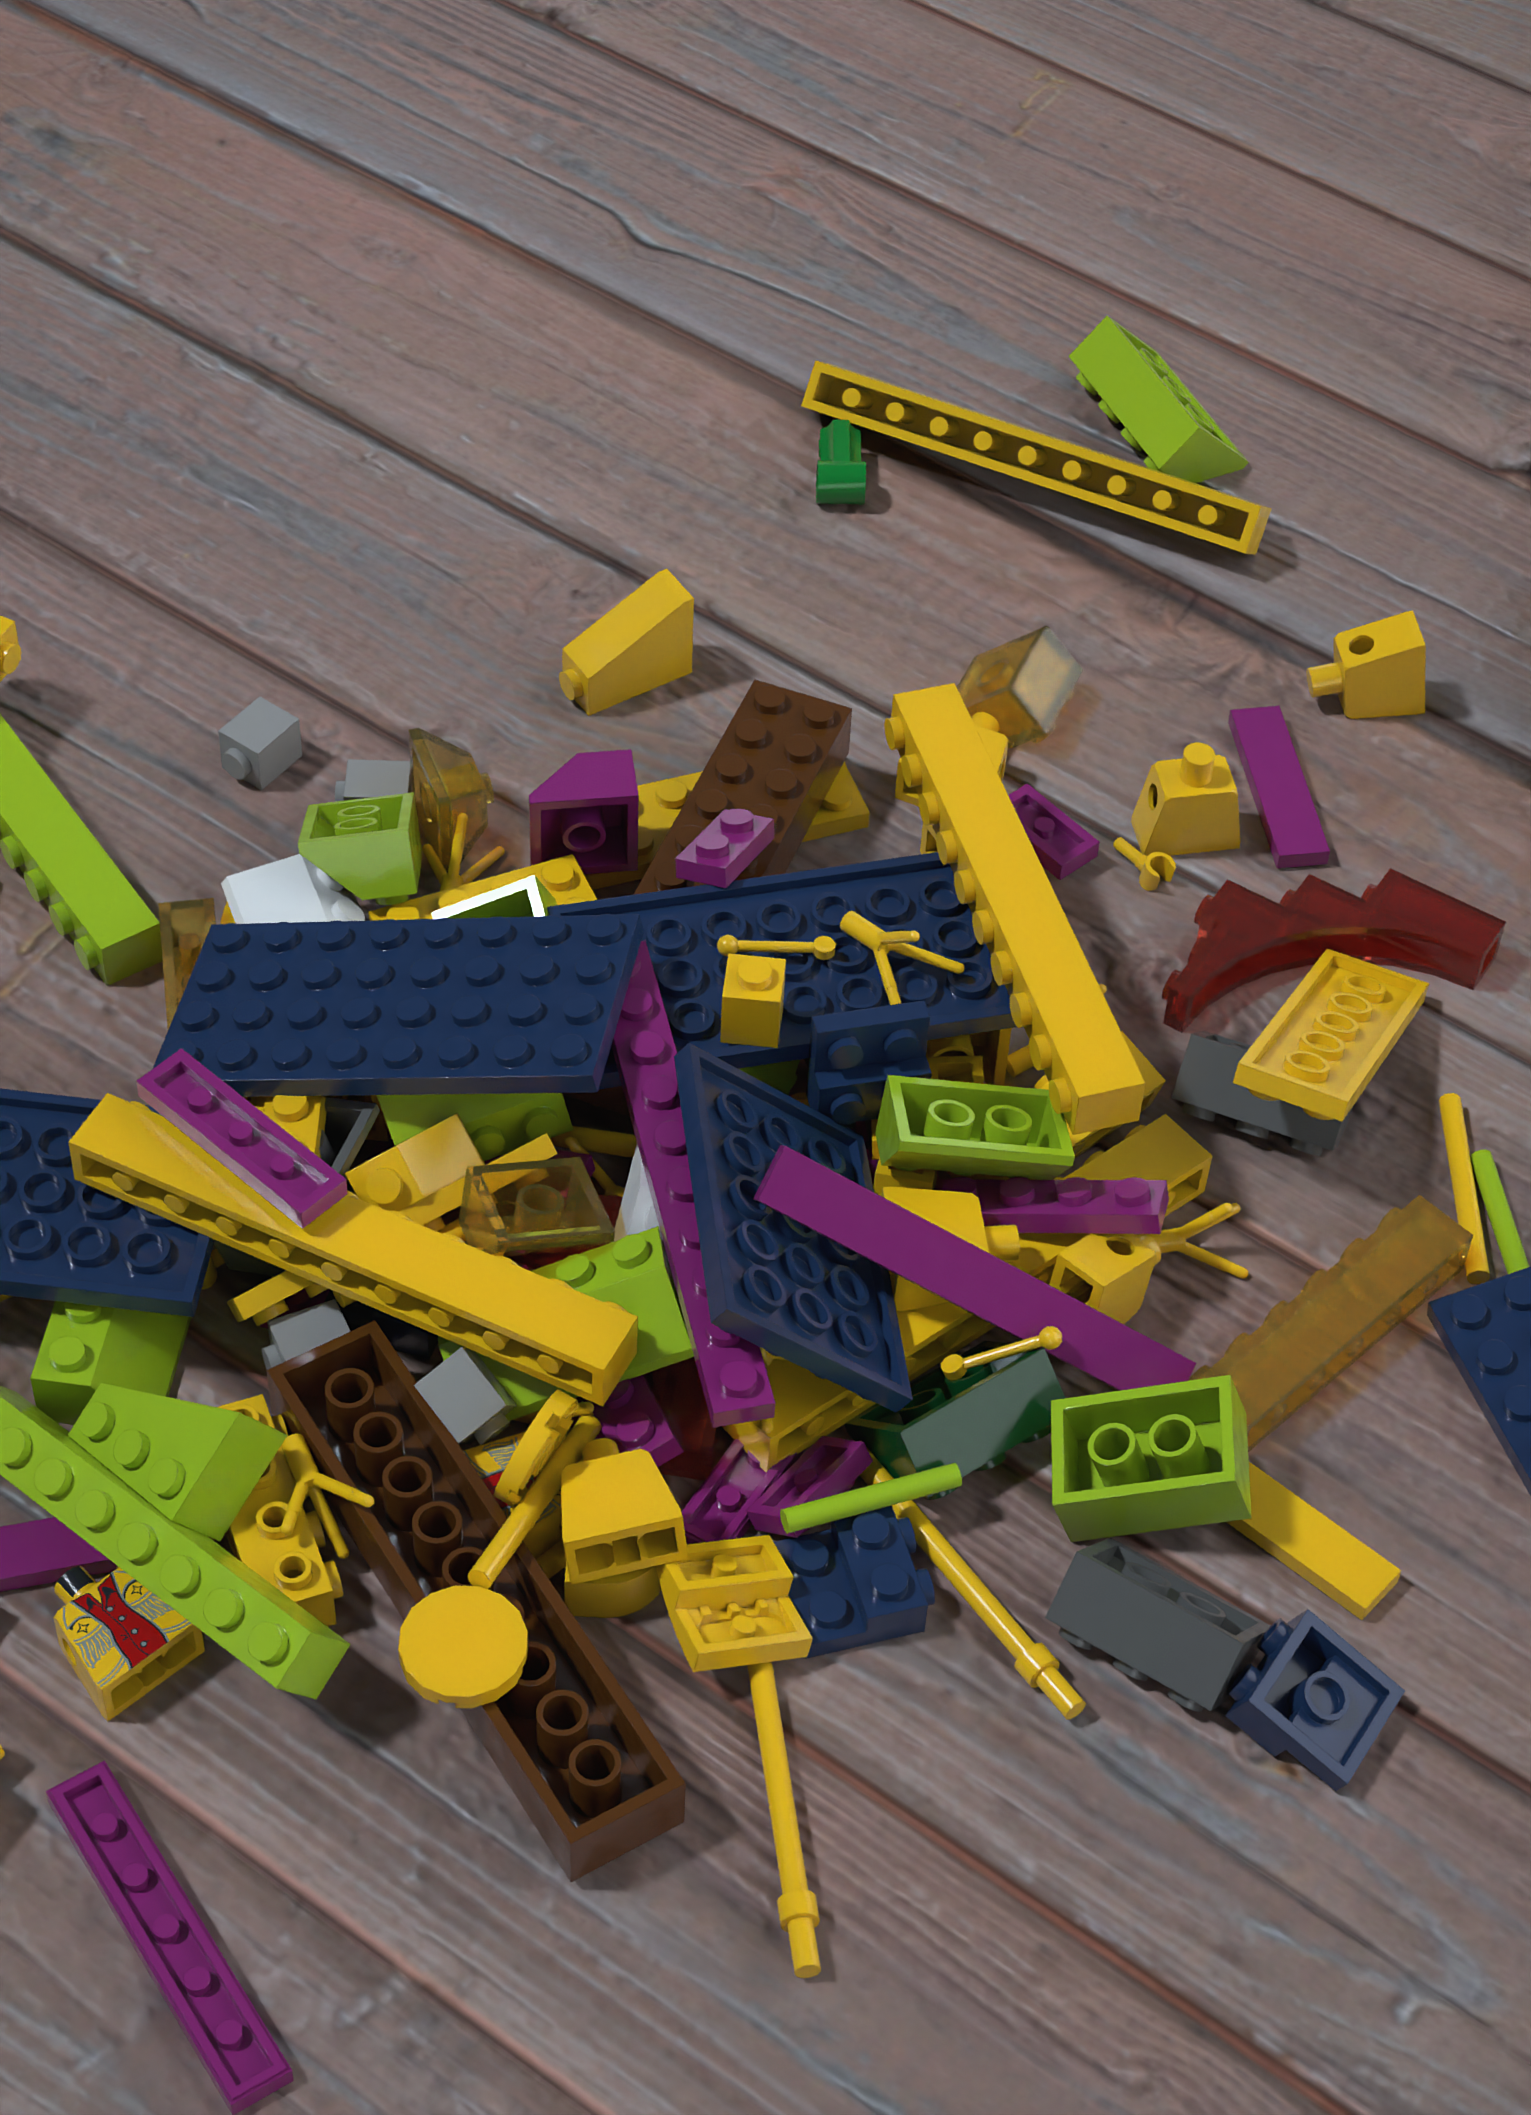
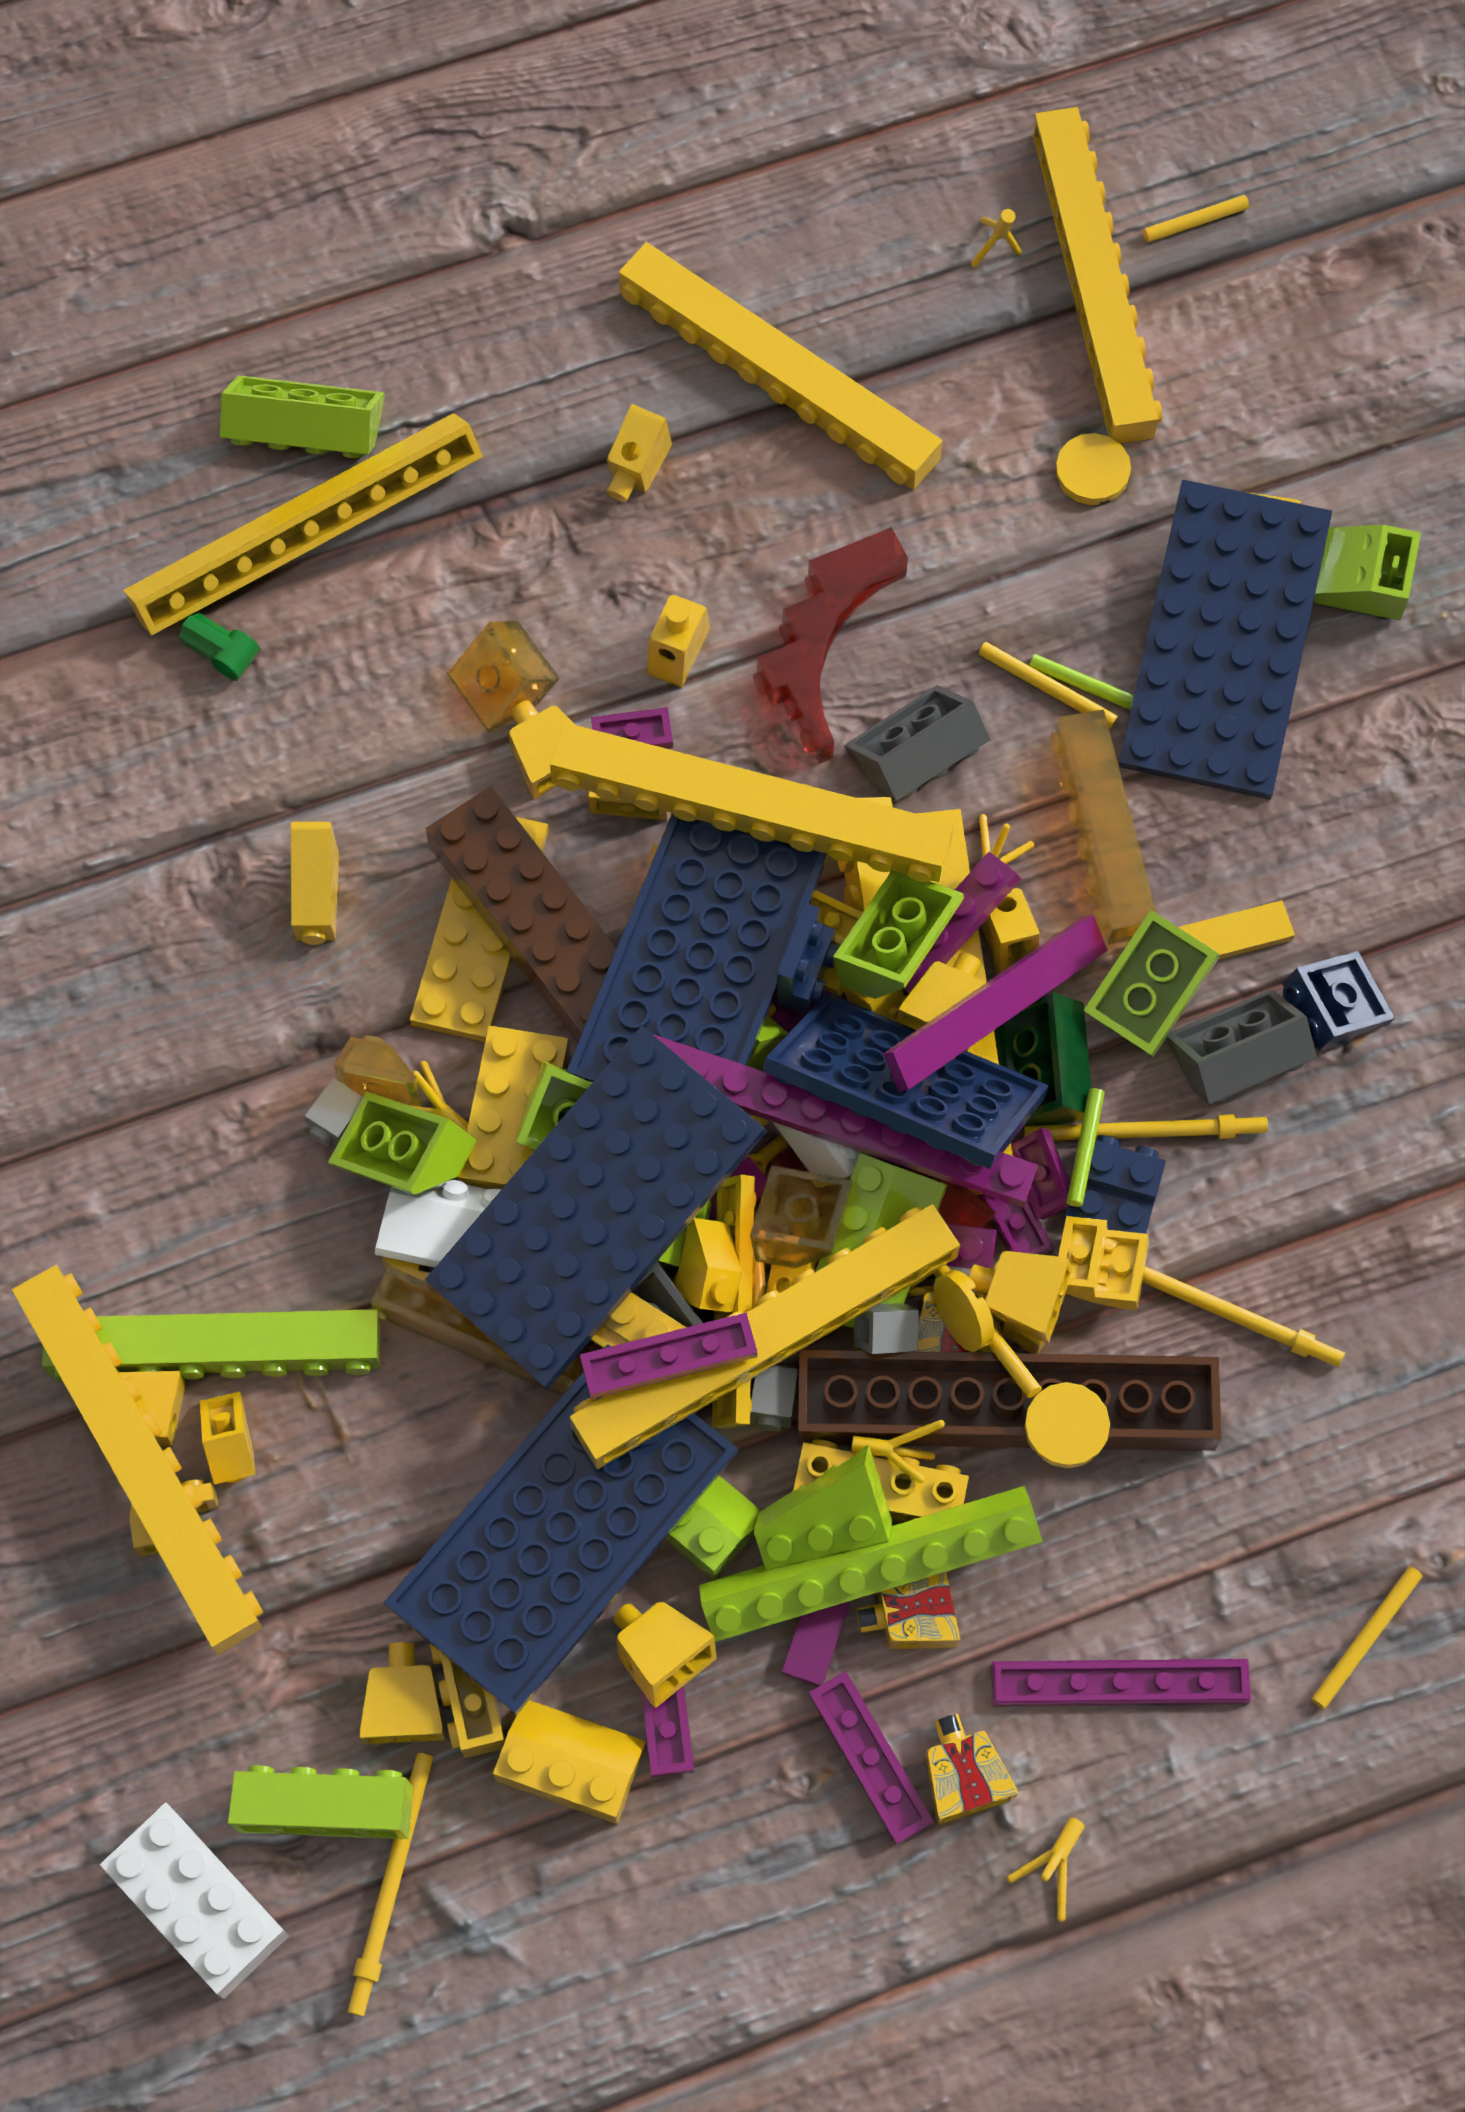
camera: 55 degrees left, 20 degrees up
(260, 743) = (236, 1162): light grey brick -> none
(588, 813) = (477, 994): magenta slope -> none
(725, 848) = (583, 937): magenta plate -> none
(752, 1000) = (740, 999): yellow brick -> none
(822, 947) = (708, 932): yellow hinge -> none
(884, 942) = (731, 896): yellow plant -> none
(955, 1366) = (1022, 1045): yellow hinge -> none
(1151, 866) = (695, 691): yellow hand -> none
(1278, 787) = (680, 571): magenta tile -> none
(1331, 1035) = (926, 684): yellow plate -> none

